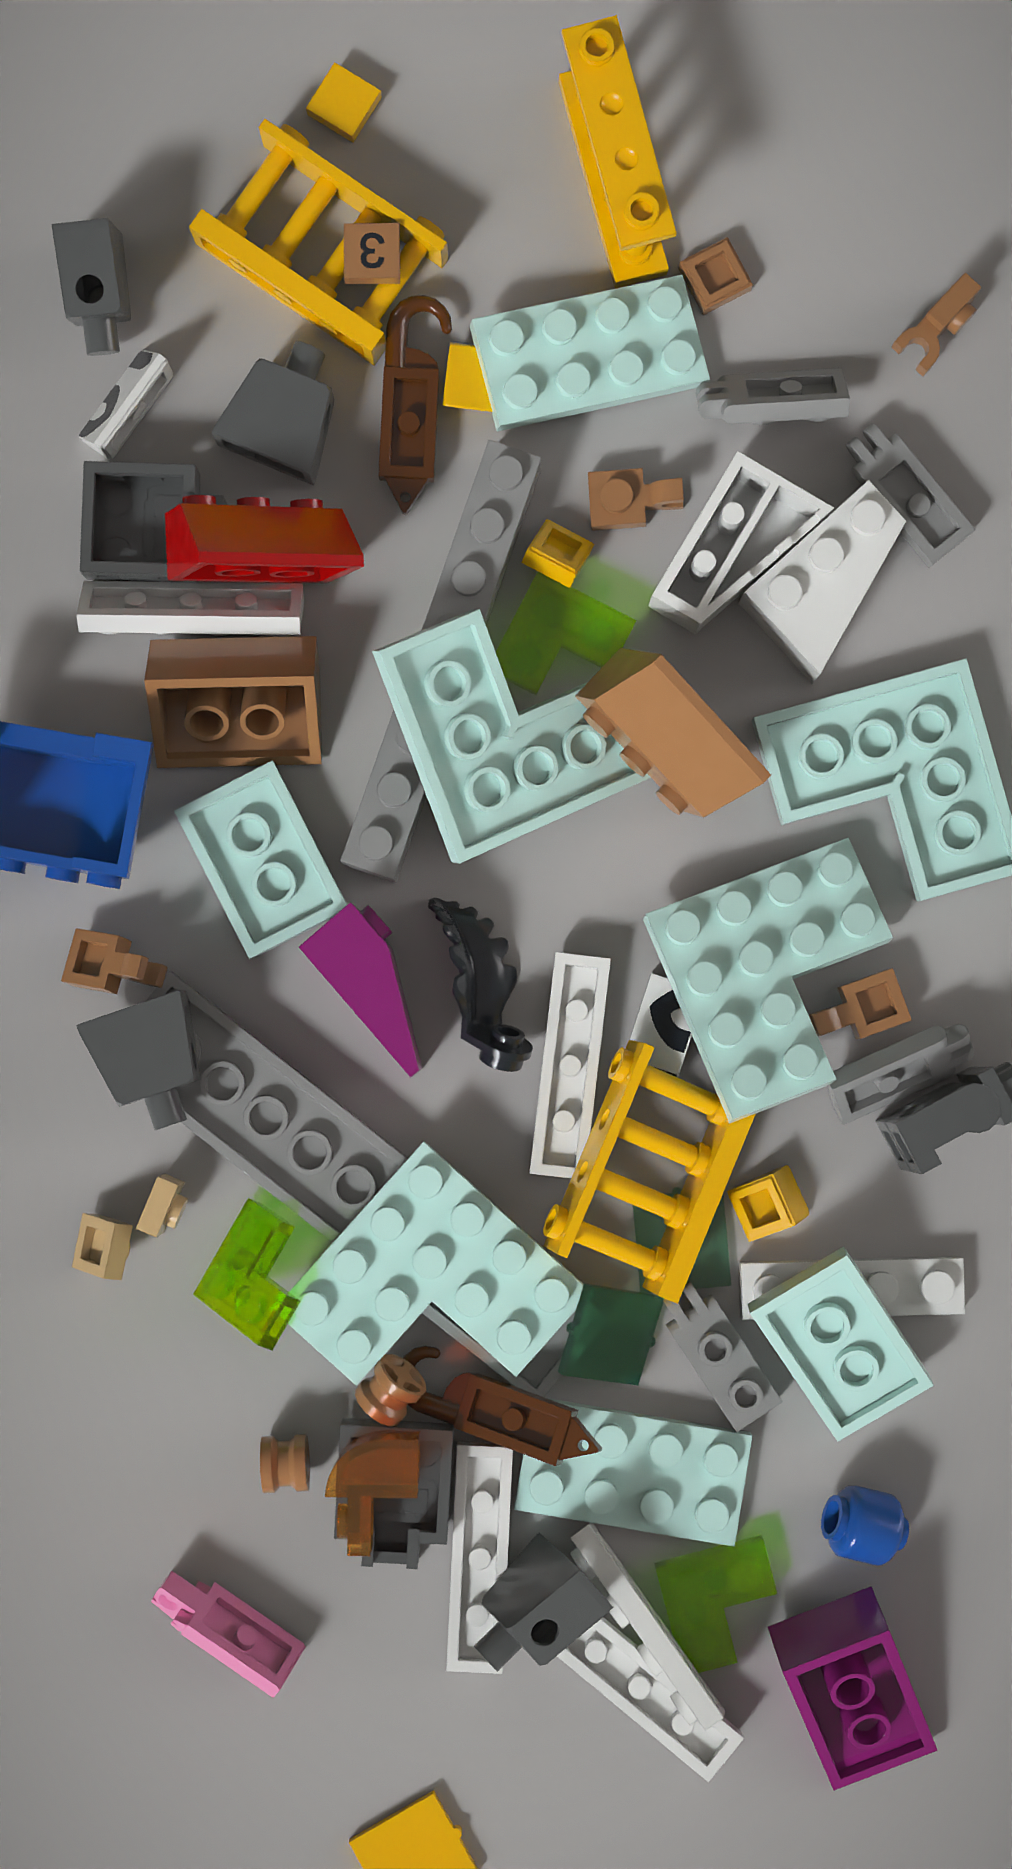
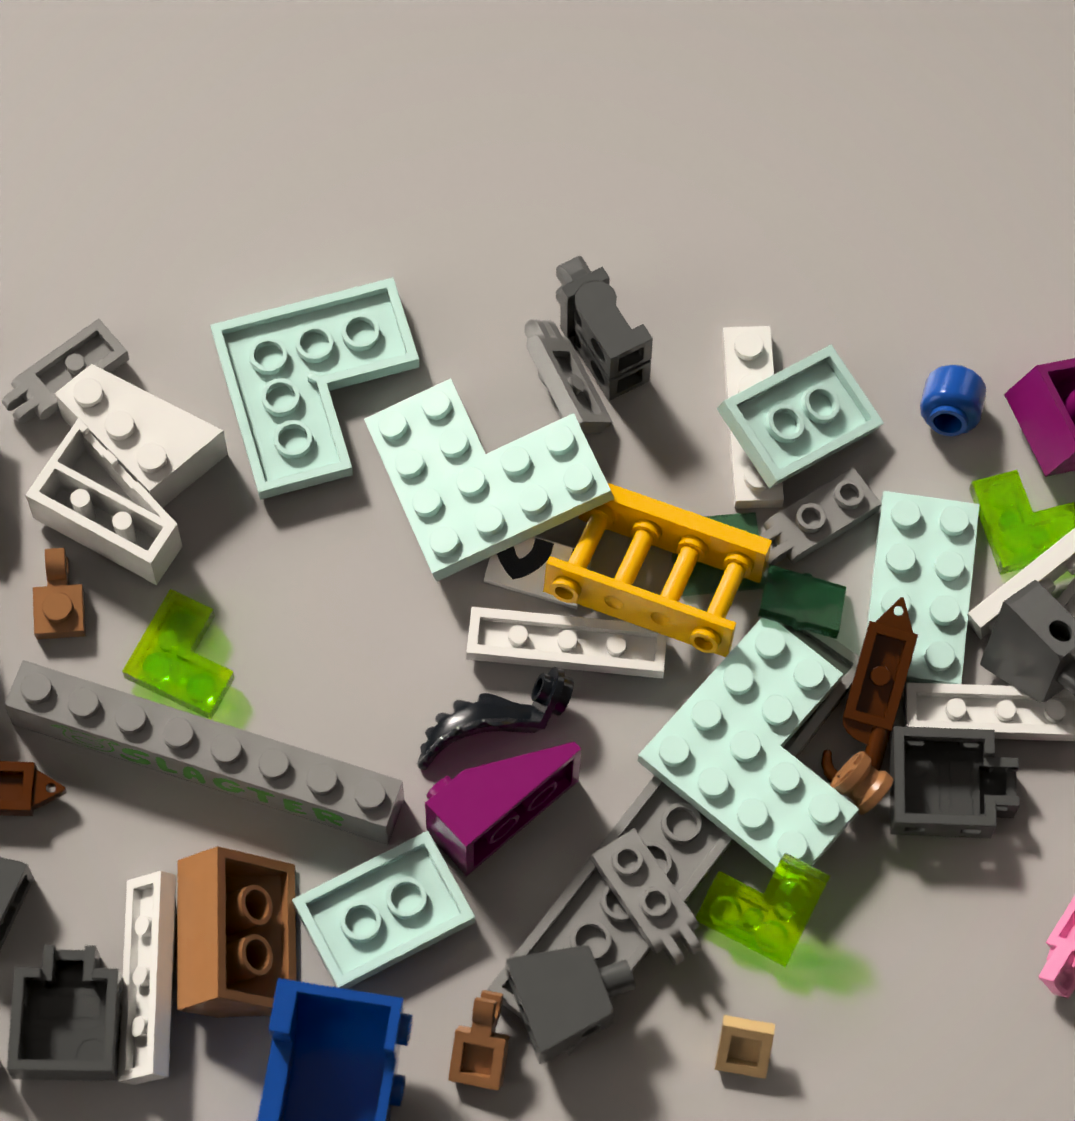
camera: 90 degrees left, 20 degrees down
(163, 1206) = (705, 992): tan plate -> none
(259, 541) = (90, 902): red slope -> none
(265, 1146) = (647, 895): none -> light grey hinge
(284, 1463) = (933, 878): medium nougat wheel -> none
(370, 1468) = (934, 792): clear orange brick -> none
(477, 757) = (296, 698): light aqua plate -> none
(558, 553) = (106, 657): yellow tile -> none
(669, 733) = (272, 546): medium nougat slope -> none
(768, 1203) = (683, 482): yellow slope -> none
(866, 1005) = (509, 401): medium nougat plate -> none

